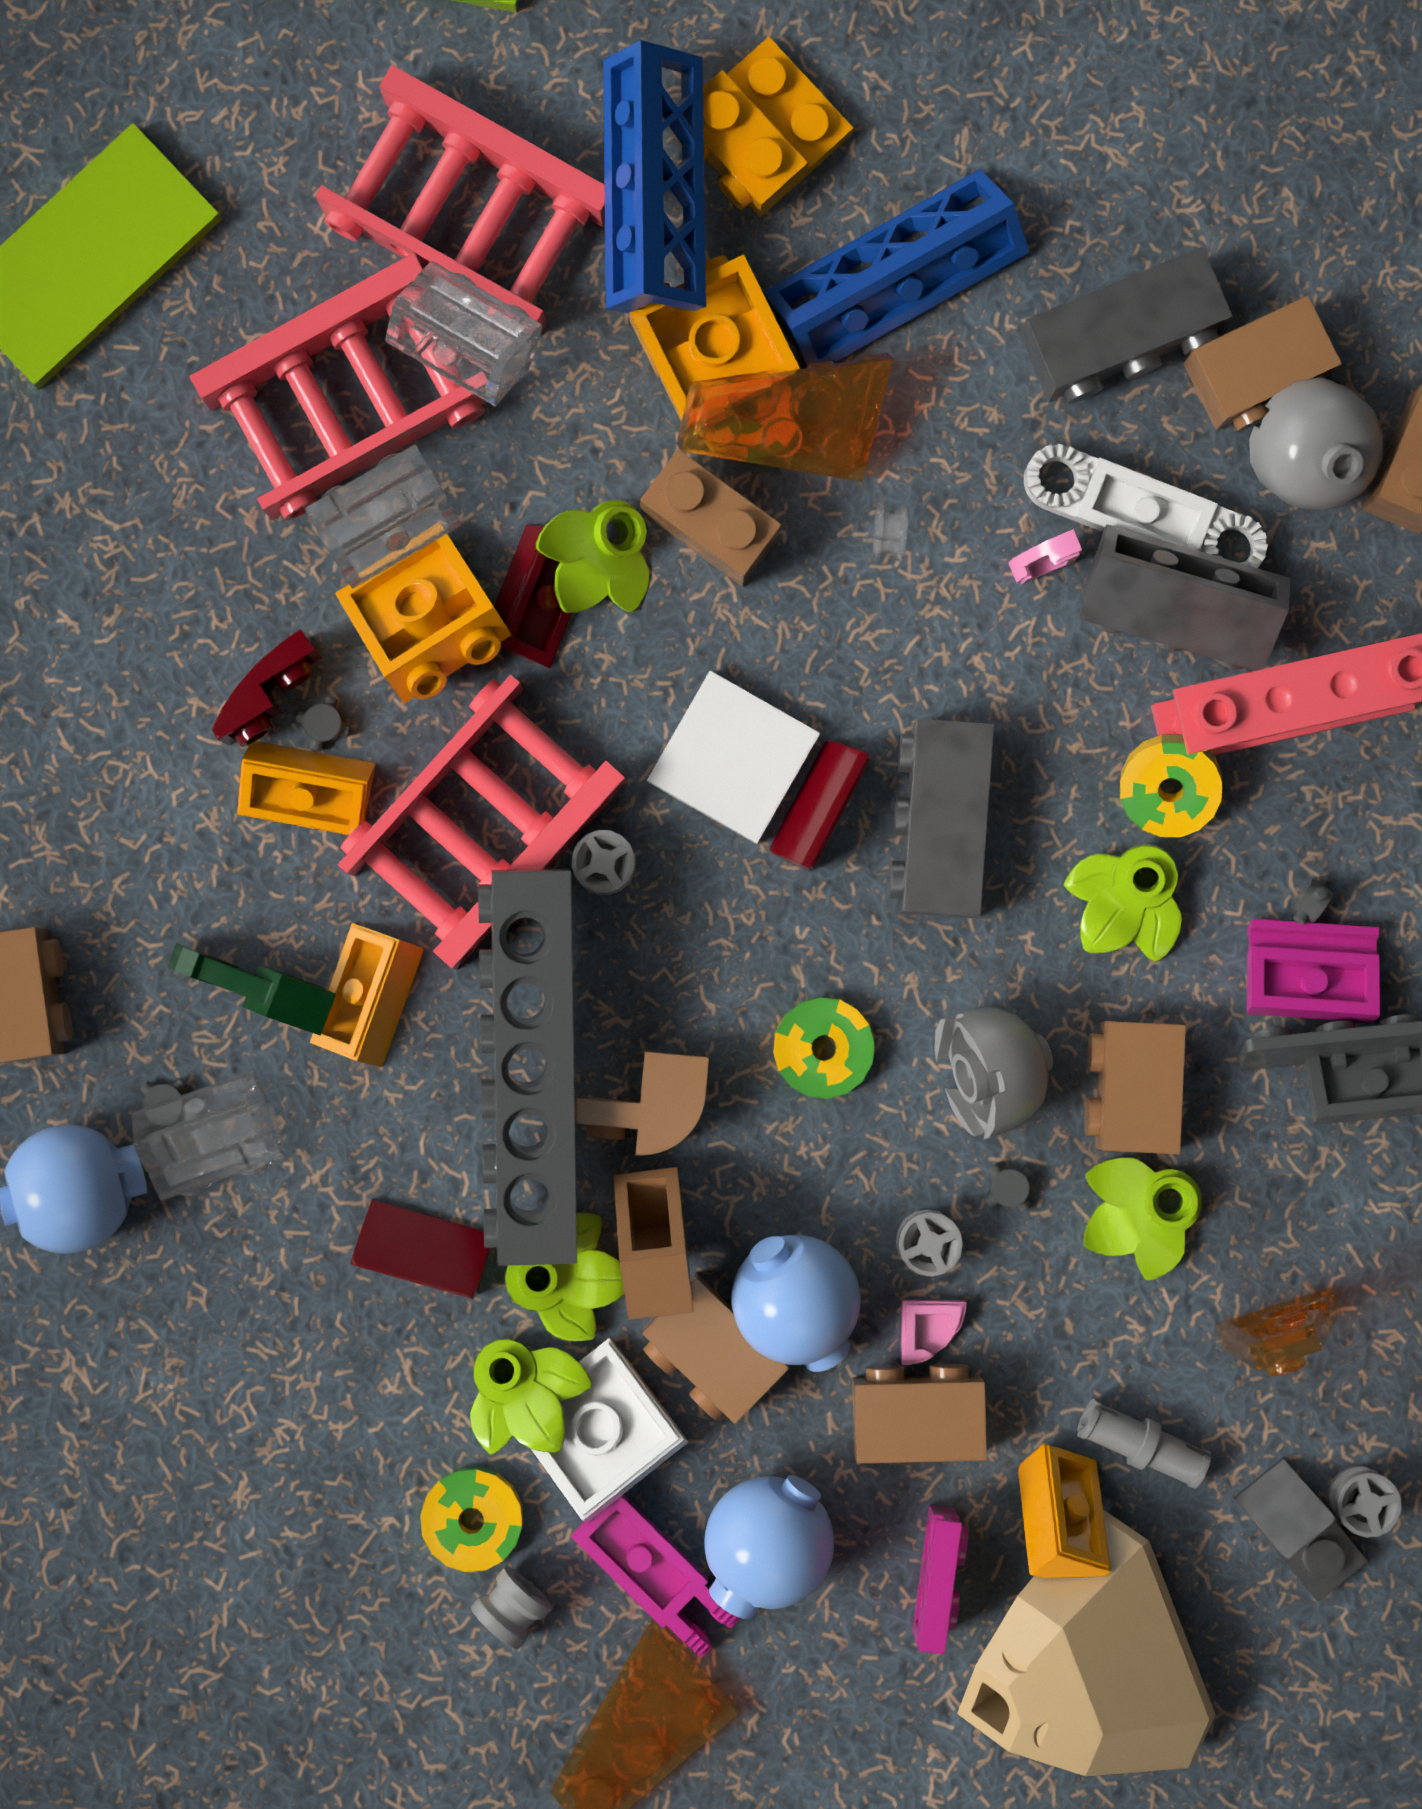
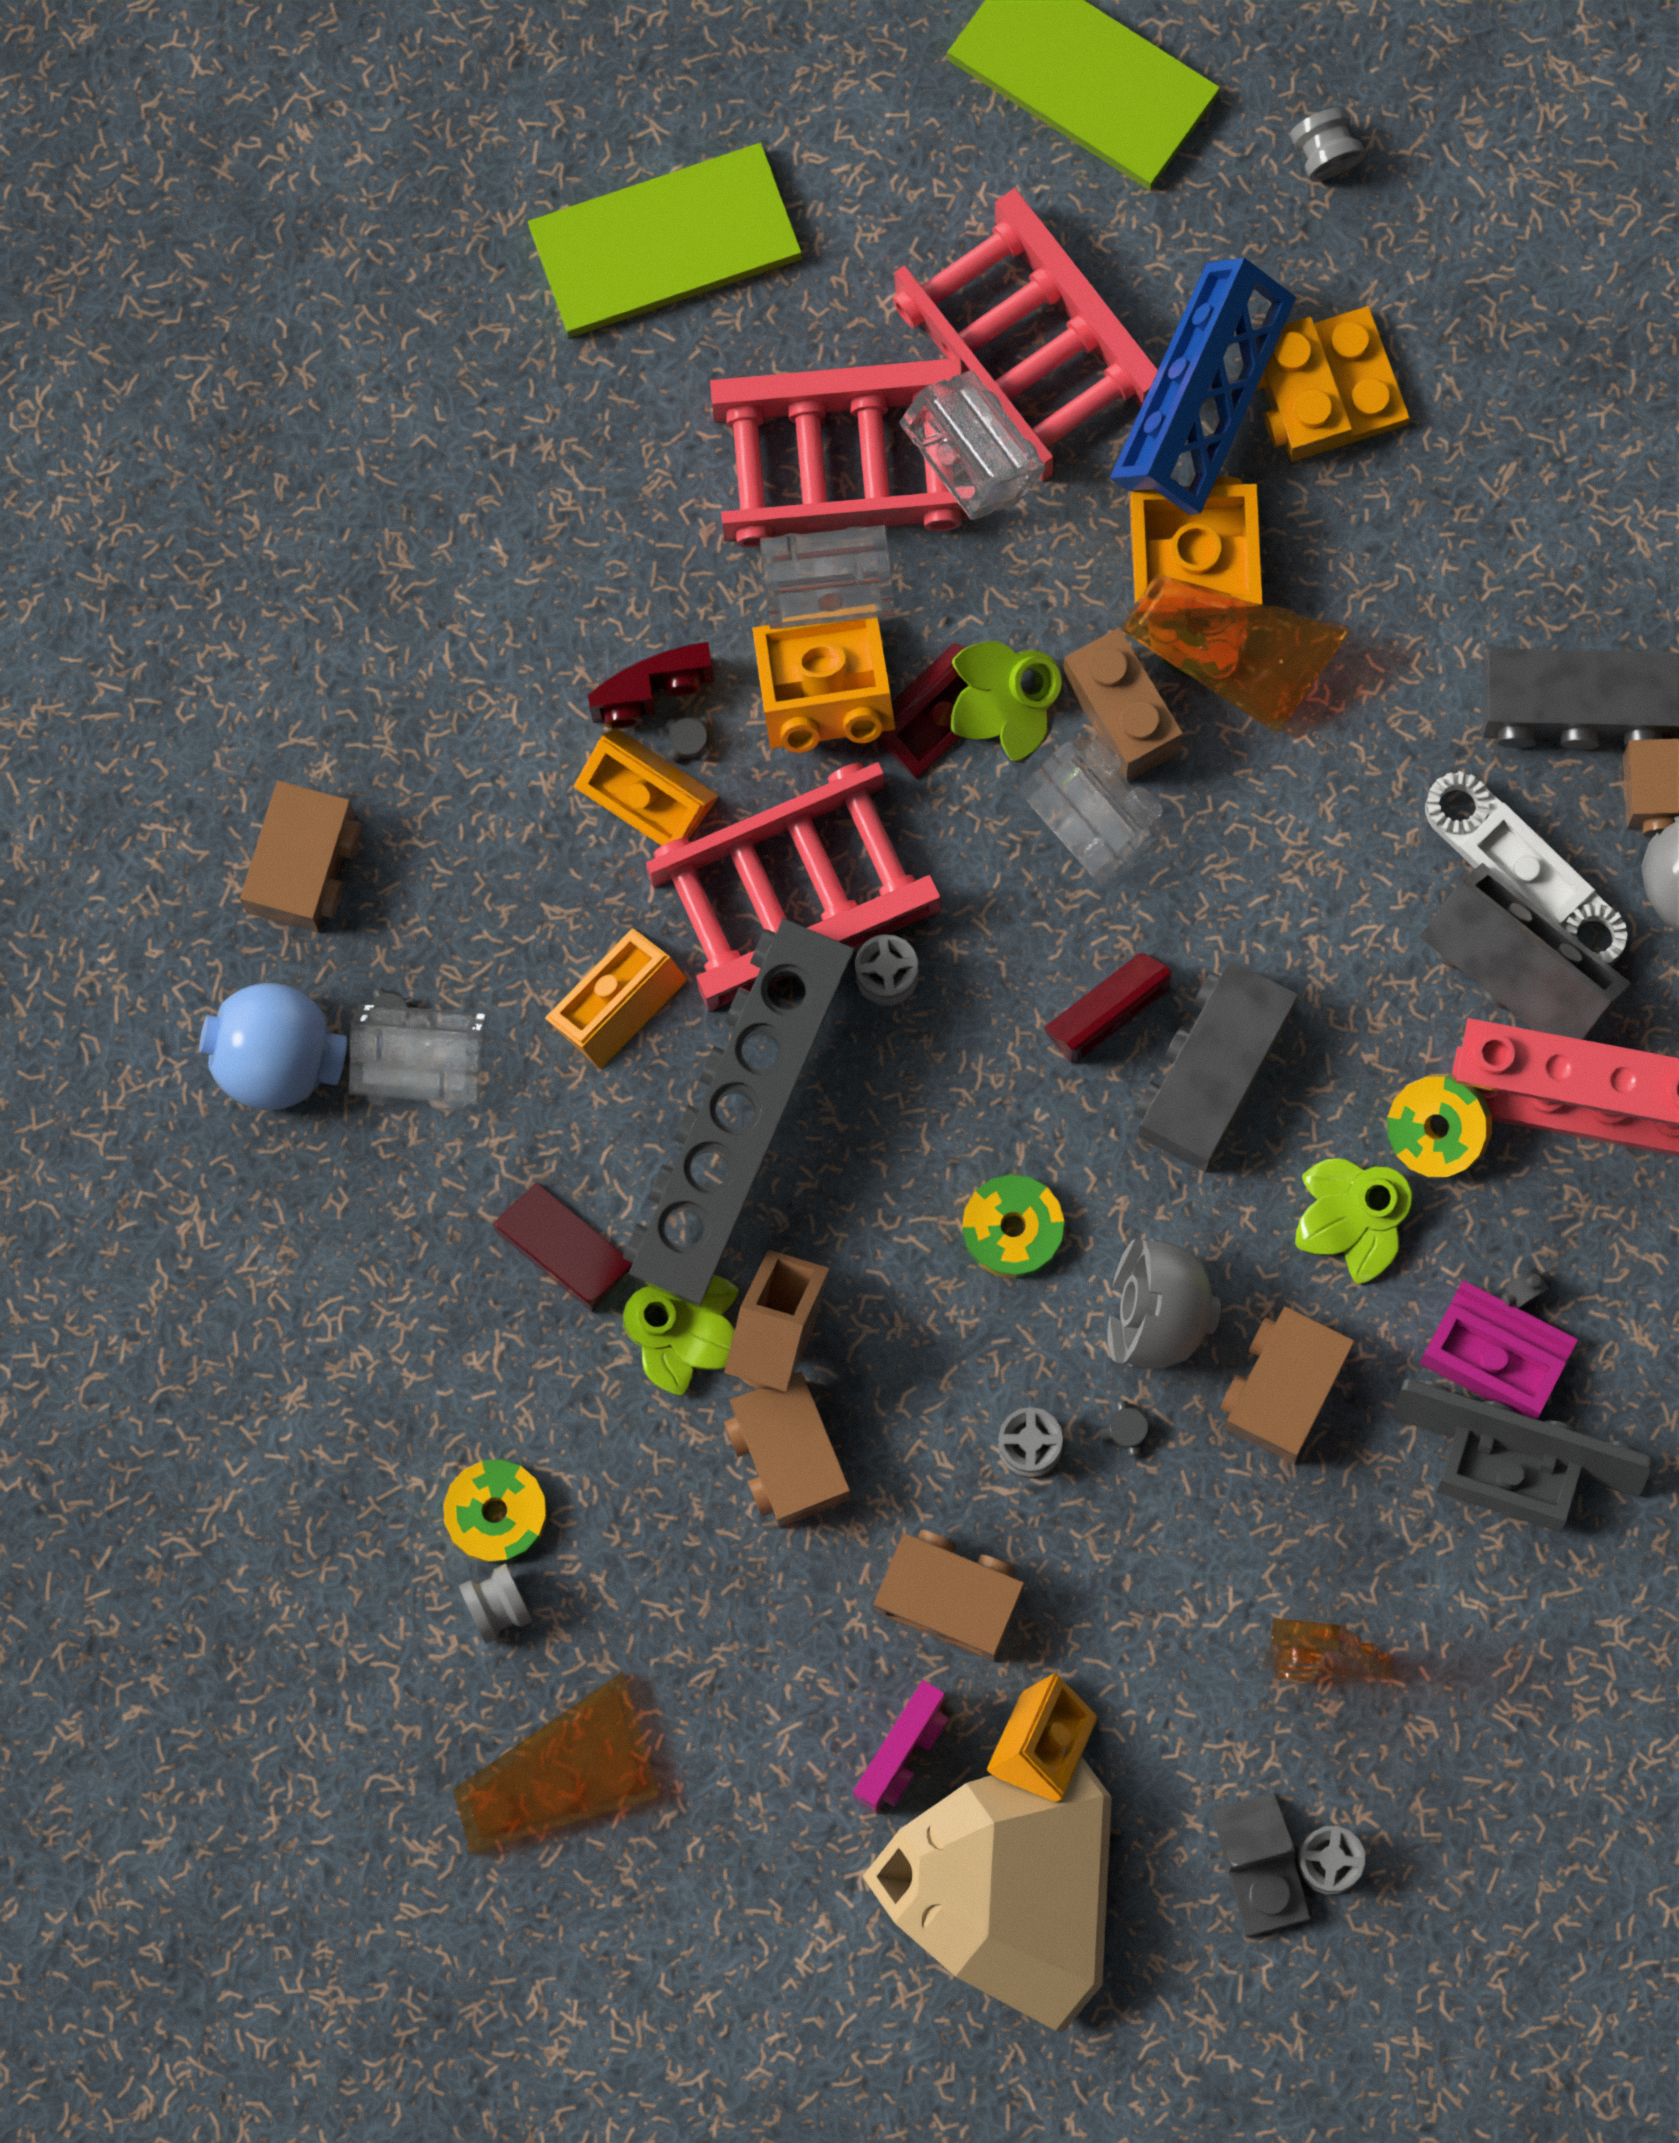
camera: 30 degrees right, 10 degrees down
(266, 991) = (529, 950): dark green piece -> none
(527, 1403) = (595, 1422): lime plate -> none
(611, 1435) = (648, 1478): white tile -> none
(650, 1569) = (639, 1626): dark pink hinge -> none
(668, 1107) = (840, 1217): medium nougat brick -> none
(729, 628) = (1095, 808): none -> clear brick
(733, 757) = (1048, 929): white tile -> none
(767, 1545) = (757, 1642): light blue brick -> none
(797, 1301) = (884, 1435): light blue brick -> none
(889, 532) = (1281, 787): clear bush -> none
(903, 275) = (1395, 567): blue fence -> none
(928, 1327) = (995, 1523): bright pink tile -> none
(1063, 551) = (1427, 873): bright pink tile -> none
(1131, 1217) = (1230, 1508): lime plate -> none
(1144, 1443) = (1148, 1716): light grey pin -> none

